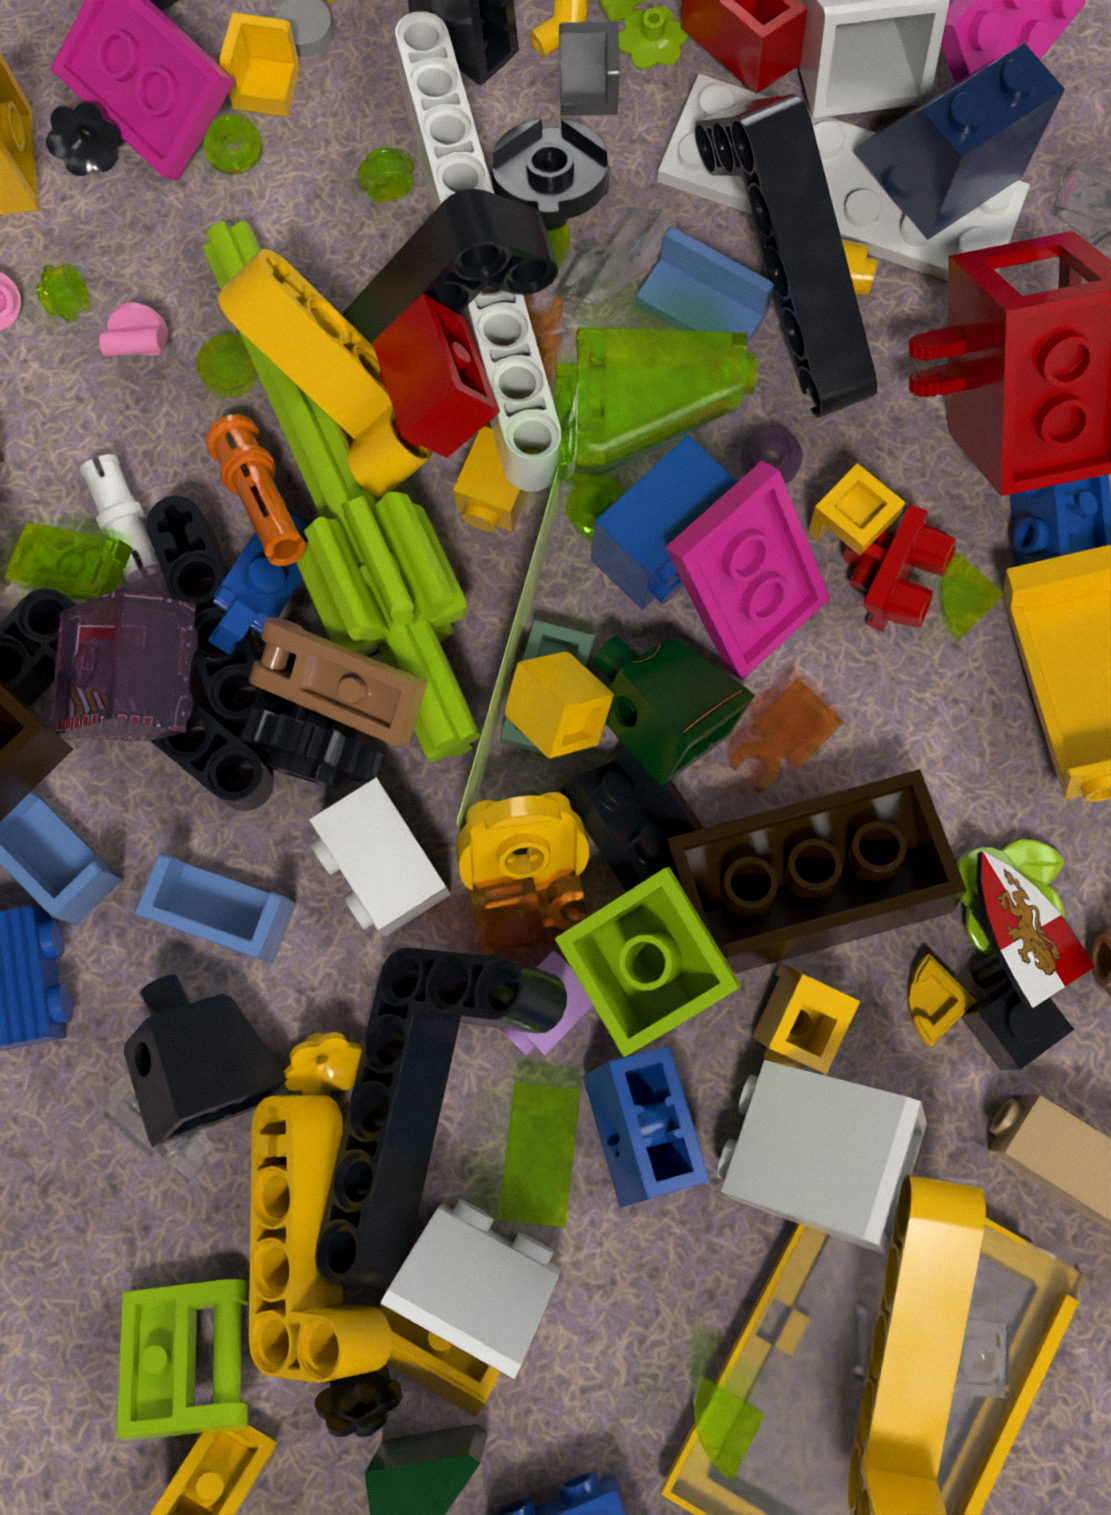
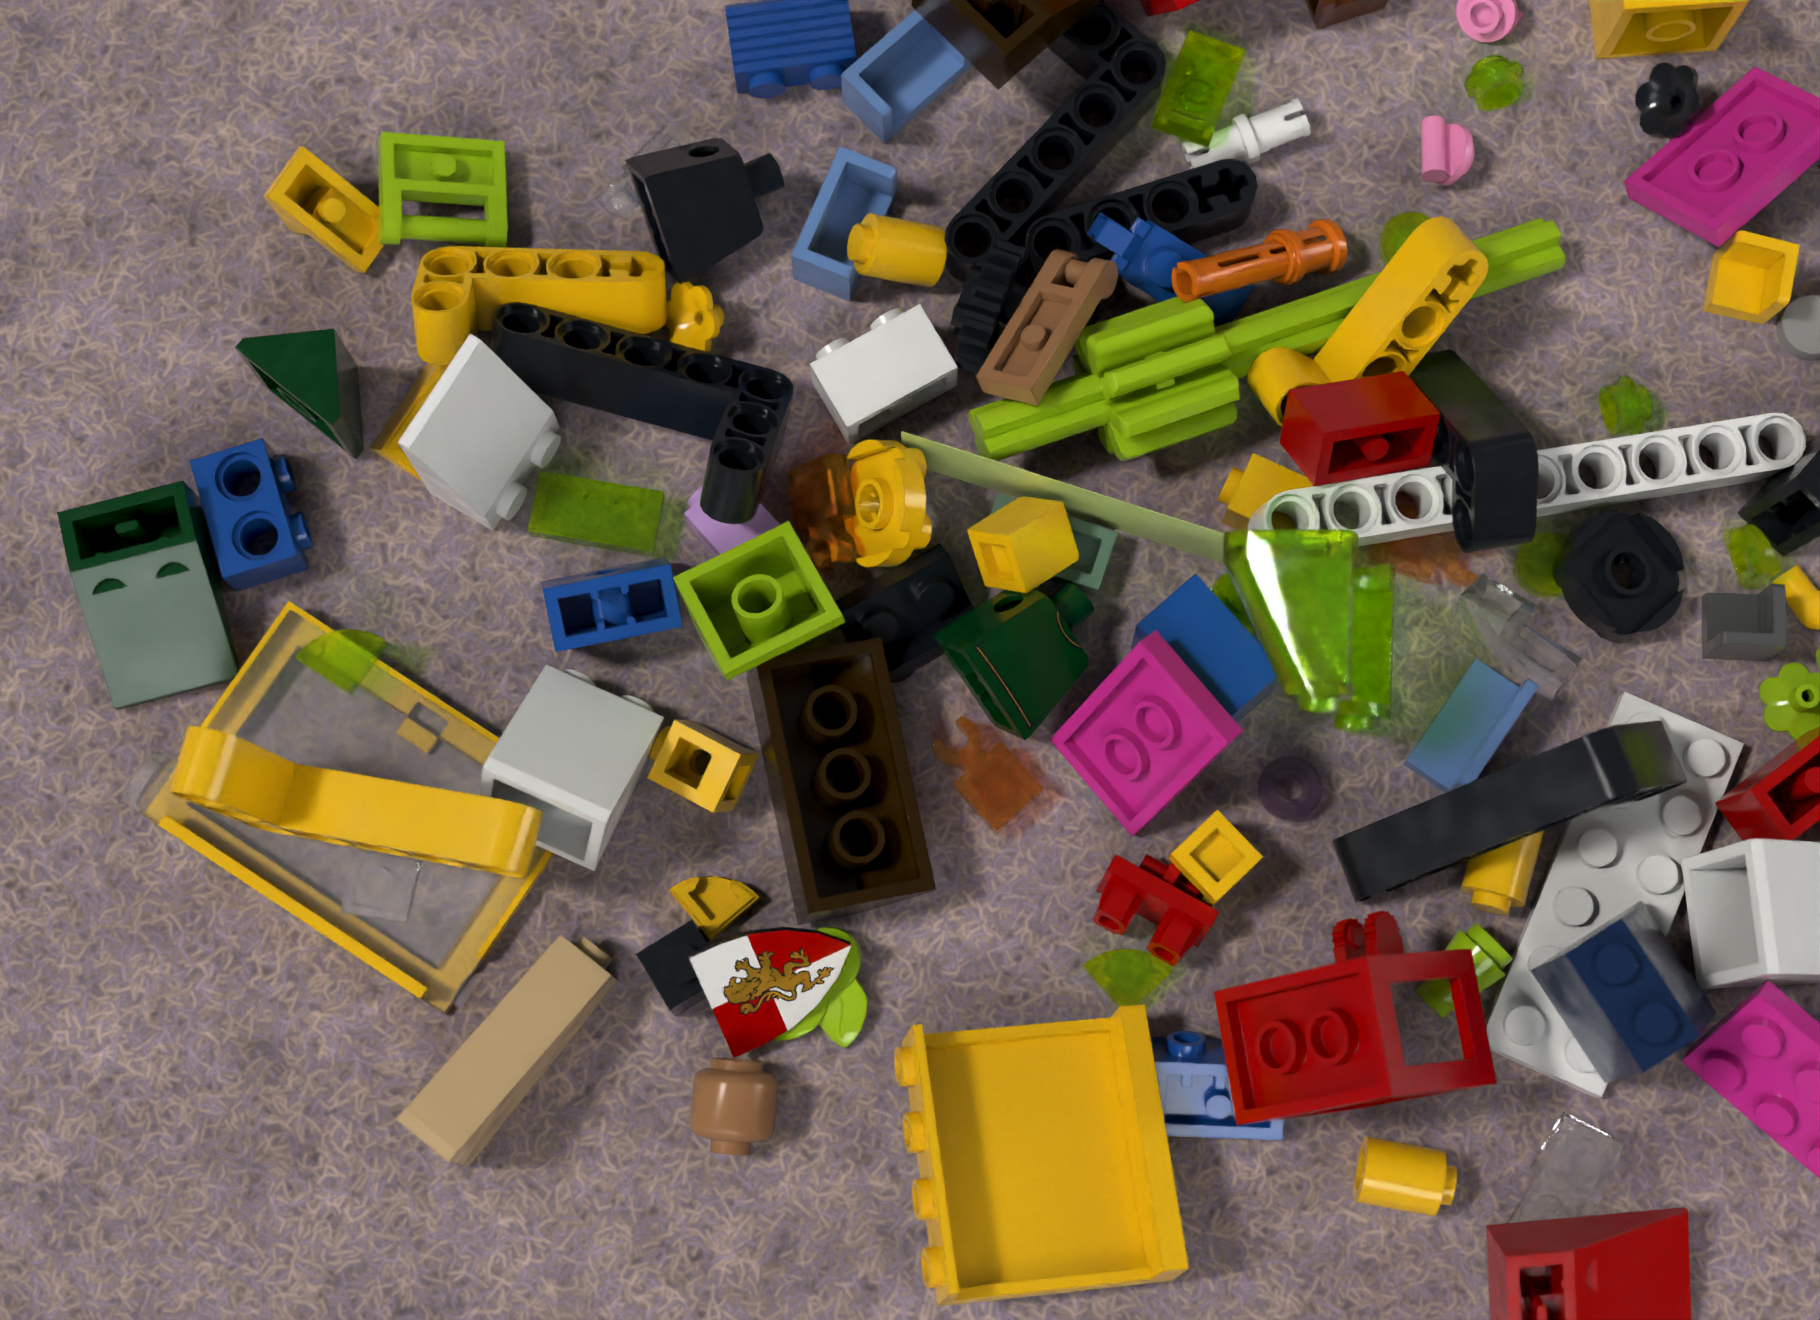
camera: 90 degrees right, 0 degrees up
(124, 667) = (1073, 135): clear purple slope -> none
(229, 130) = (1672, 237): clear neon green plate -> none
(245, 850) = (897, 250): none -> yellow brick
(358, 1403) = (391, 342): black plant -> none
(523, 67) = (1750, 555): none -> clear neon green tile
(921, 294) = (1488, 960): none -> lime cone

